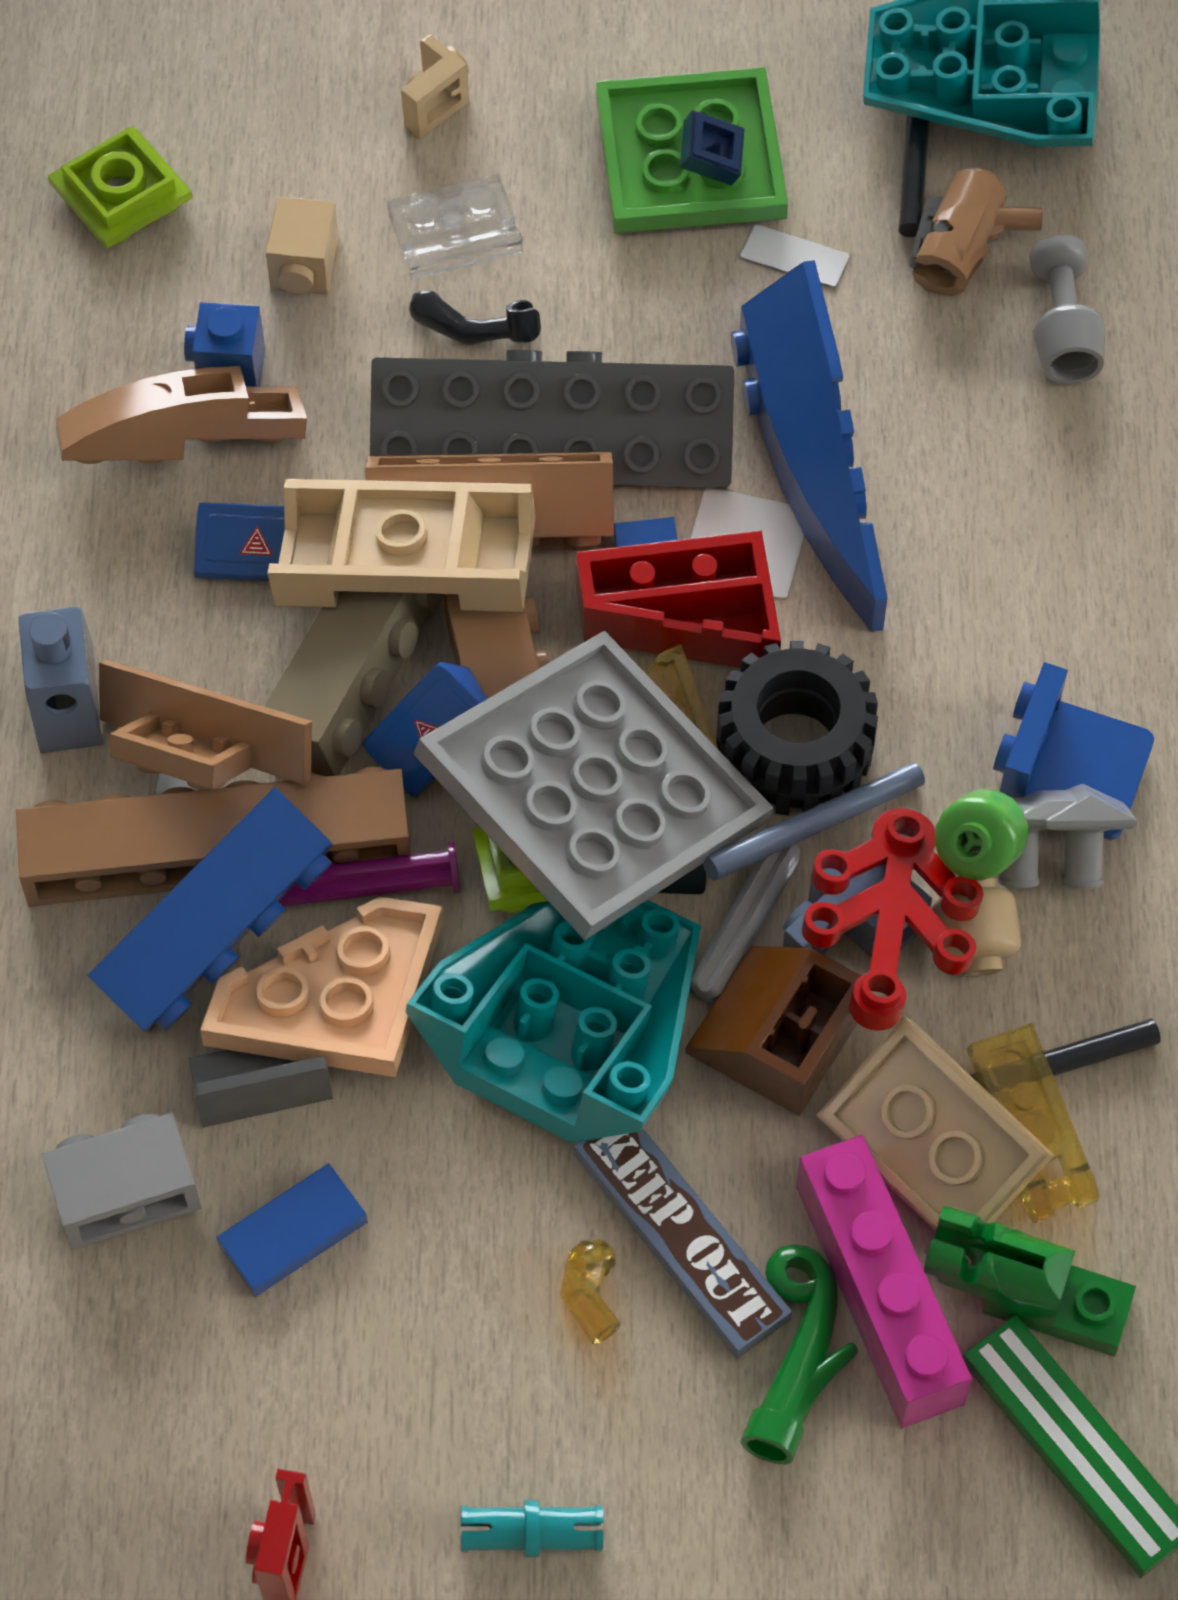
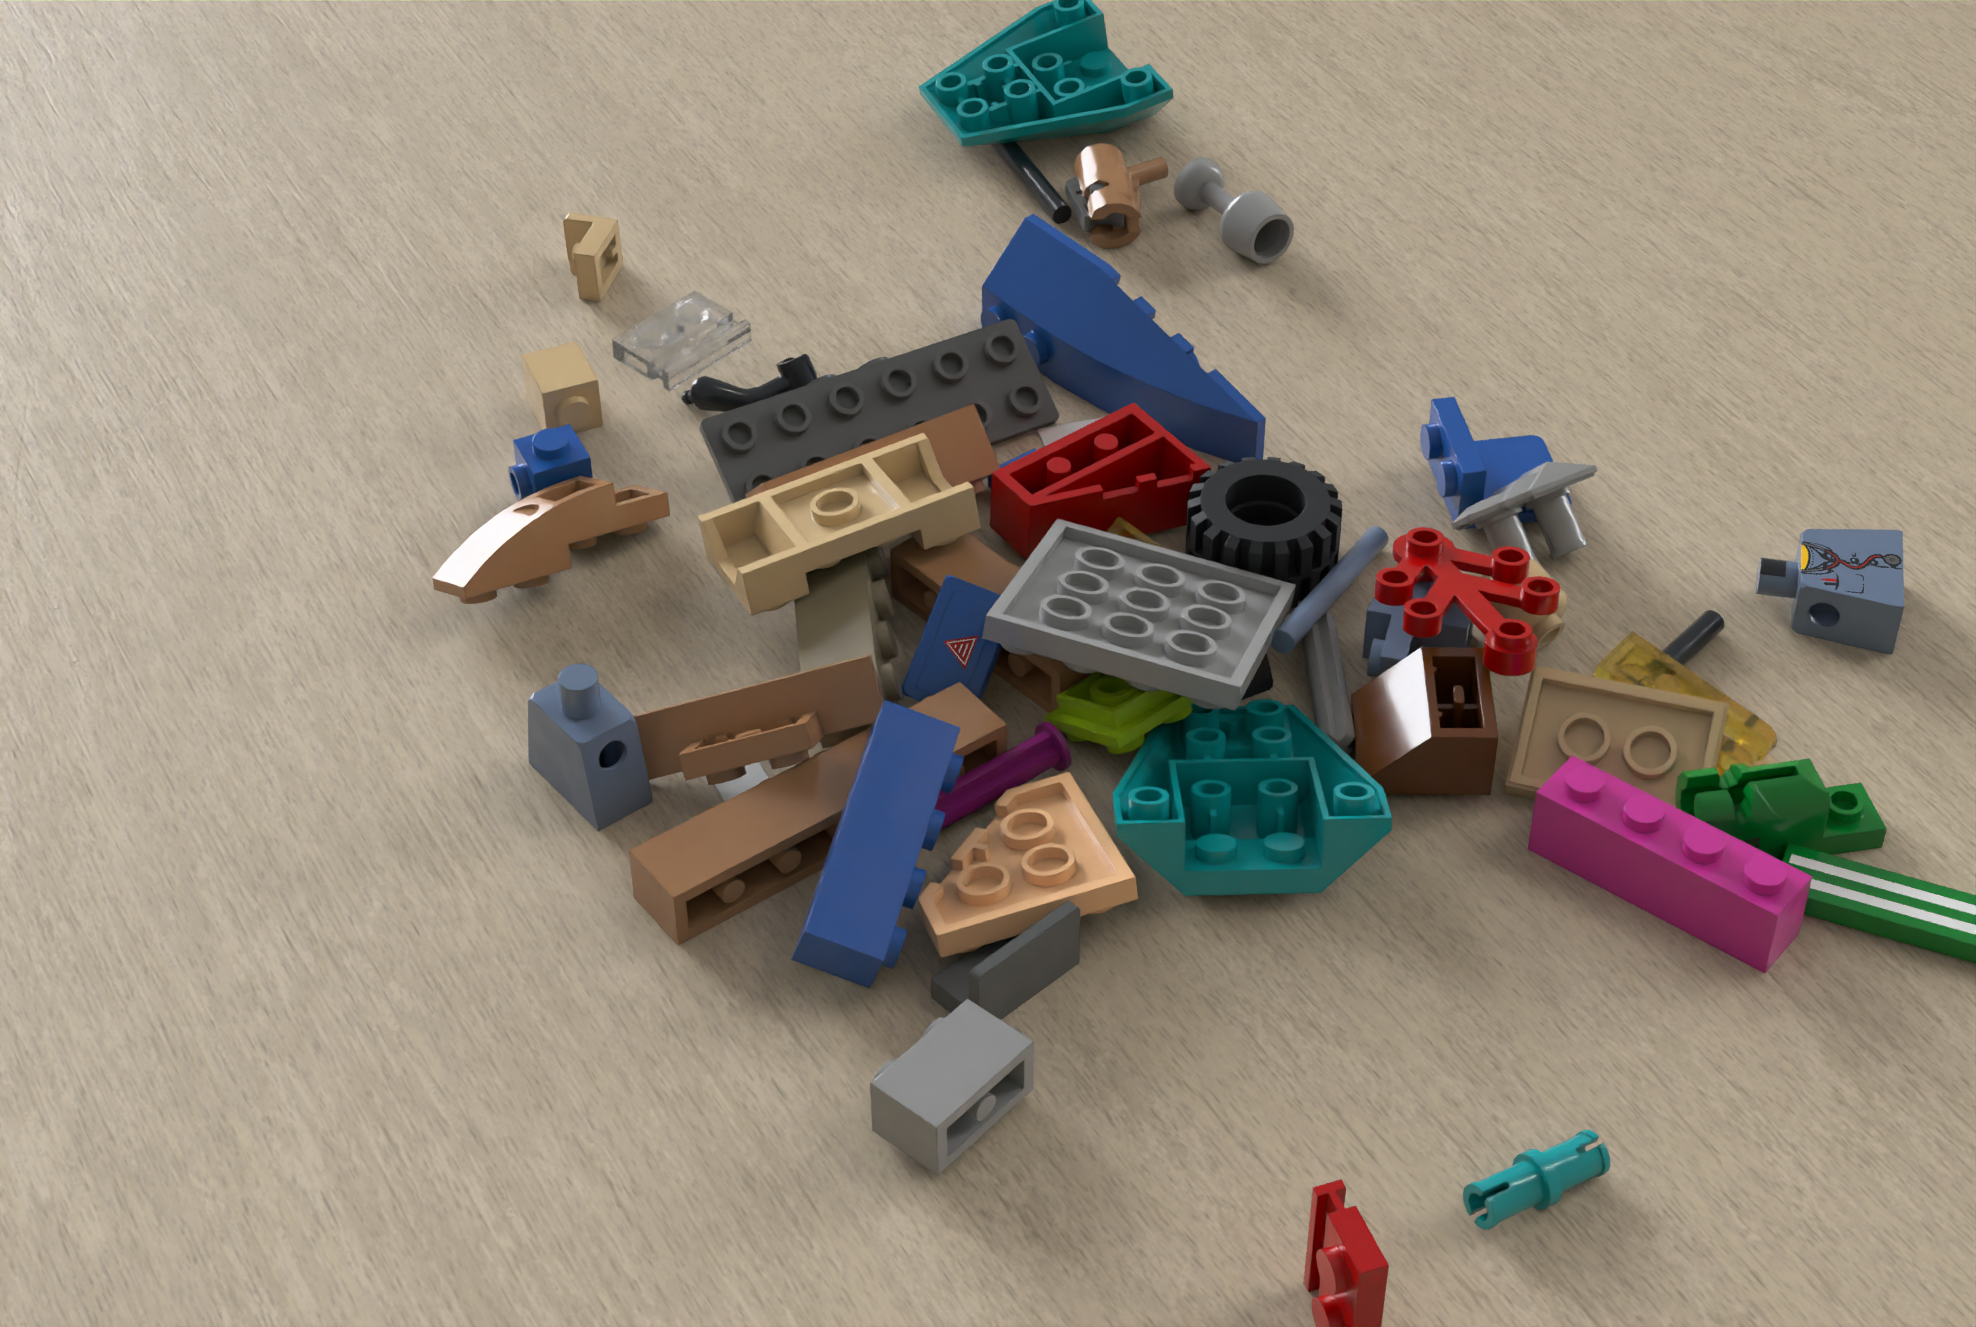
camera: 30 degrees left, 20 degrees down
(120, 211) = (358, 414): lime piece -> none
(237, 540) = (677, 602): blue slope -> none
(292, 1229) = (1129, 1067): blue tile -> none
(581, 1287) = (1421, 989): clear yellow arm -> none
(643, 145) = (843, 223): bright green plate -> none
(685, 1238) = (1471, 917): tile -> none
(712, 147) = (870, 201): dark blue tile -> none
(776, 1426) = (1670, 1004): green plant -> none
(787, 252) = (965, 264): white sticker -> none
(981, 834) = (1484, 534): bright green head -> none

